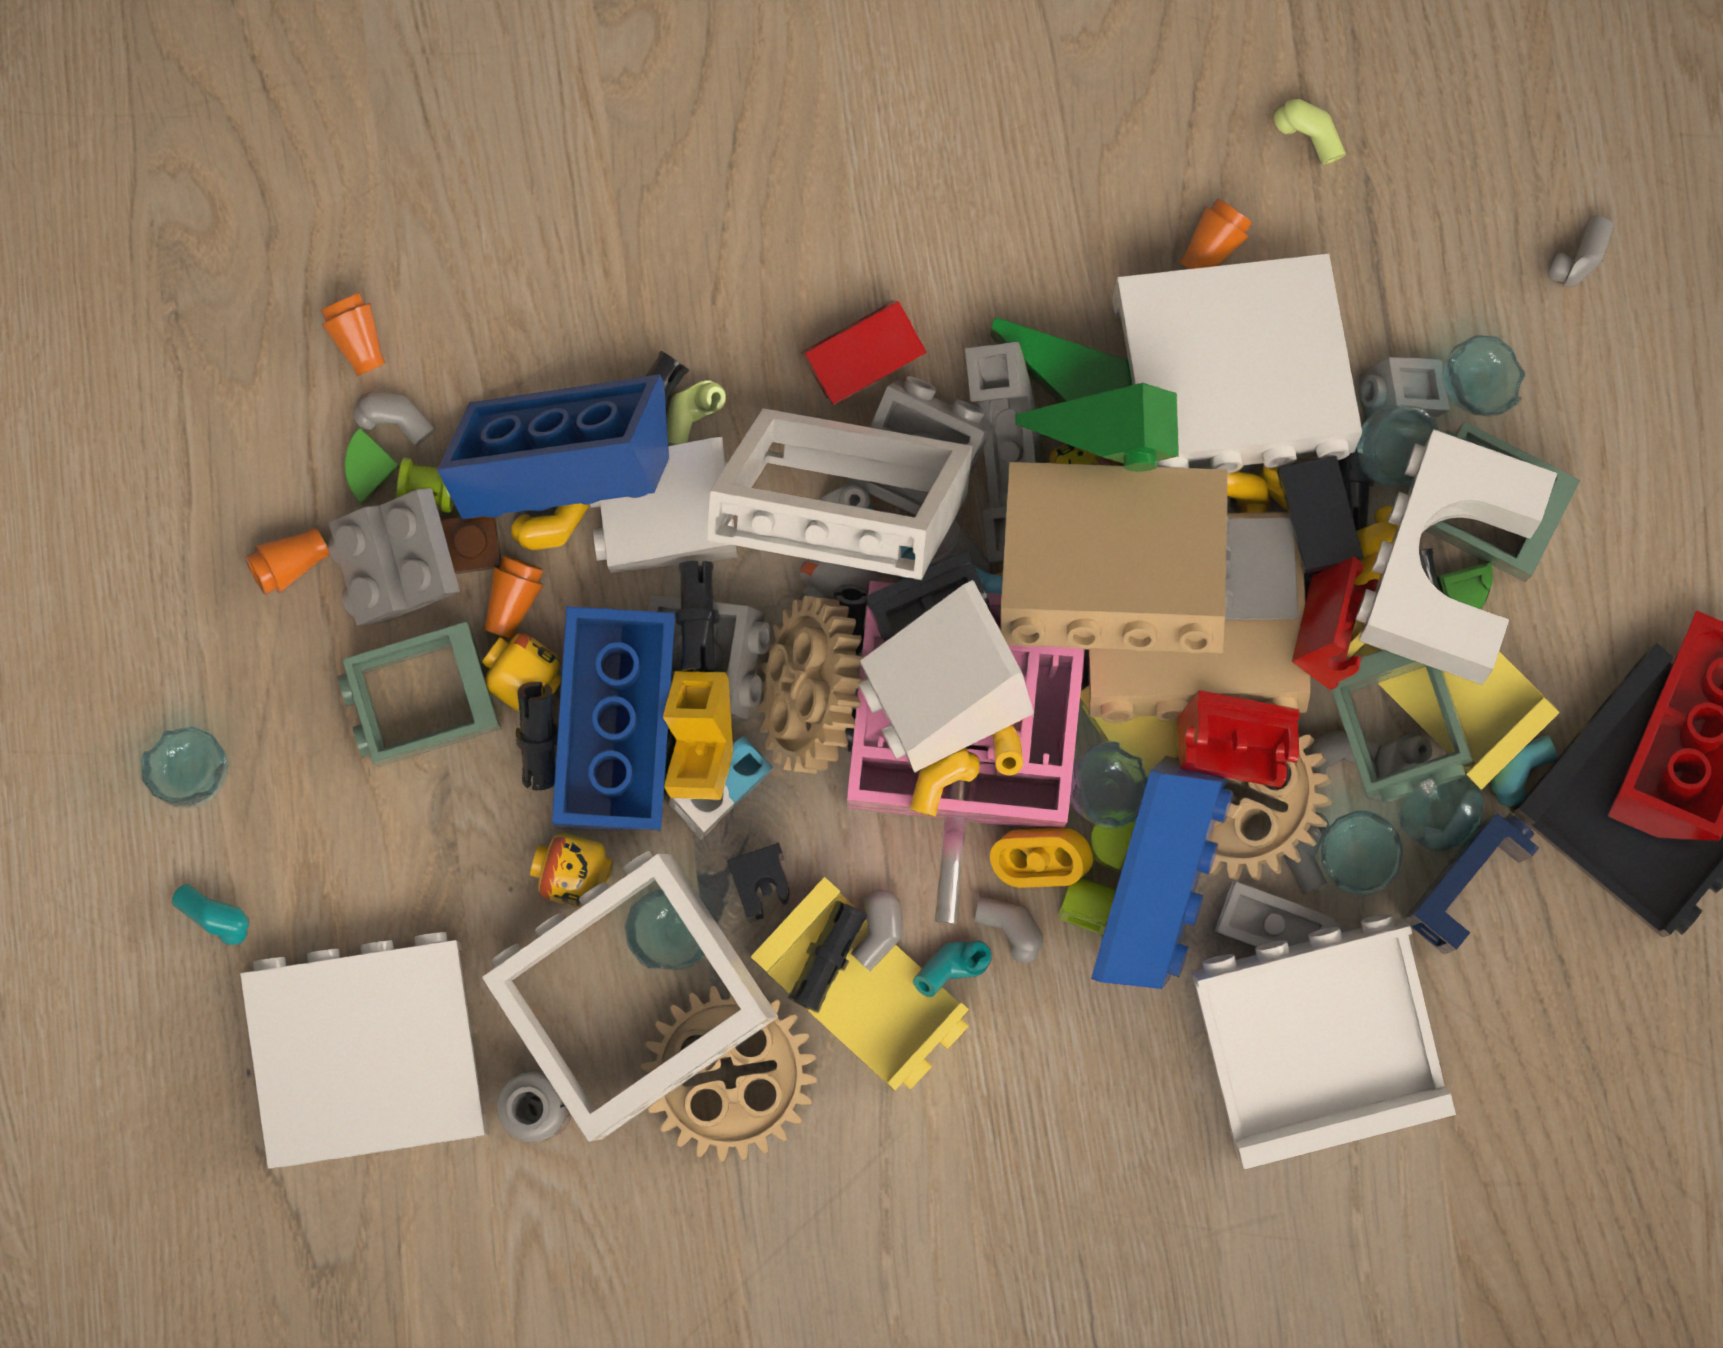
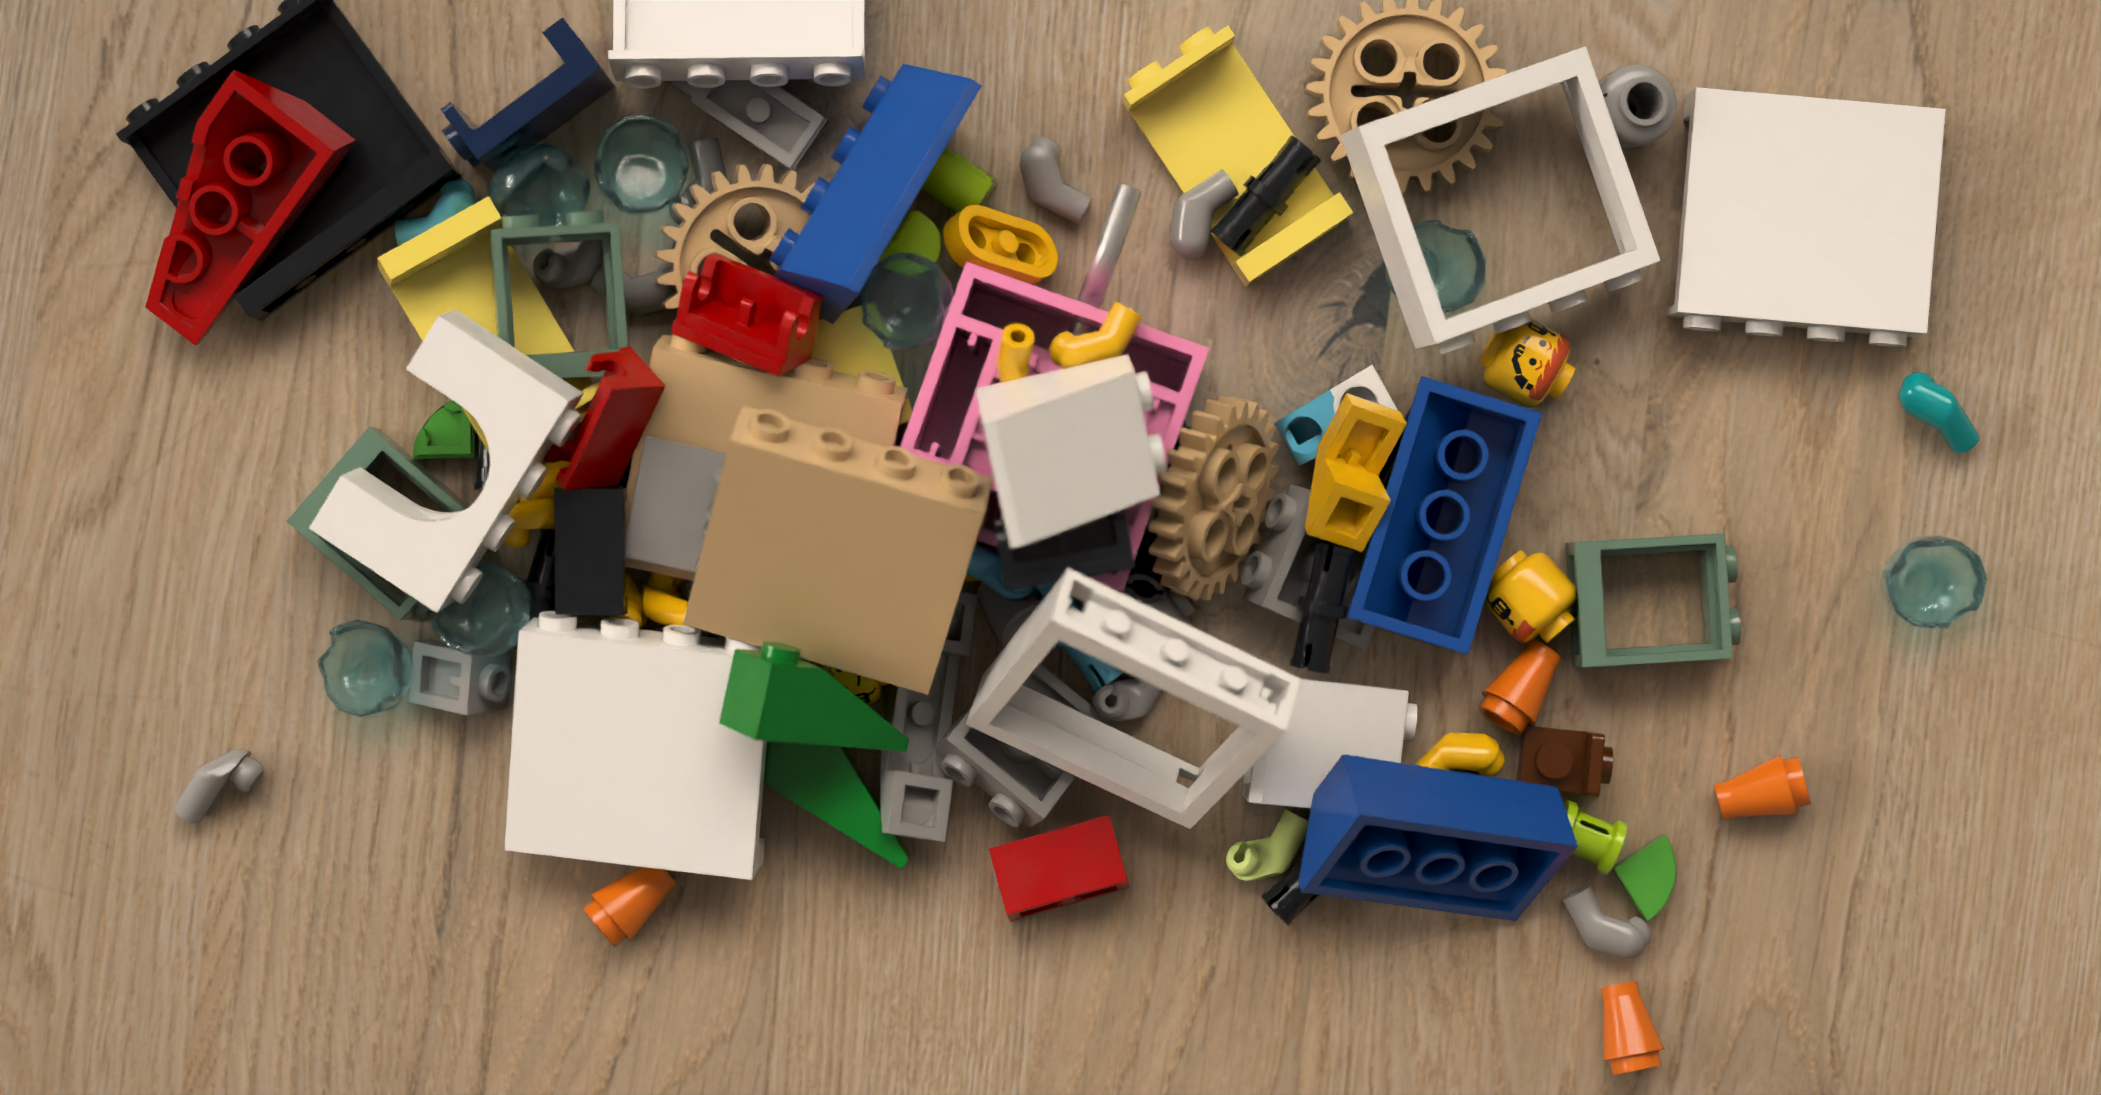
camera: 165 degrees left, 5 degrees up
(392, 558) = (1647, 760): light grey plate -> none
(536, 735) = (1533, 521): black pin -> none
(756, 871) = (1326, 299): black hinge -> none
(953, 962) = (1128, 158): teal arm -> none
(1314, 122) = (484, 1008): yellowish green arm -> none

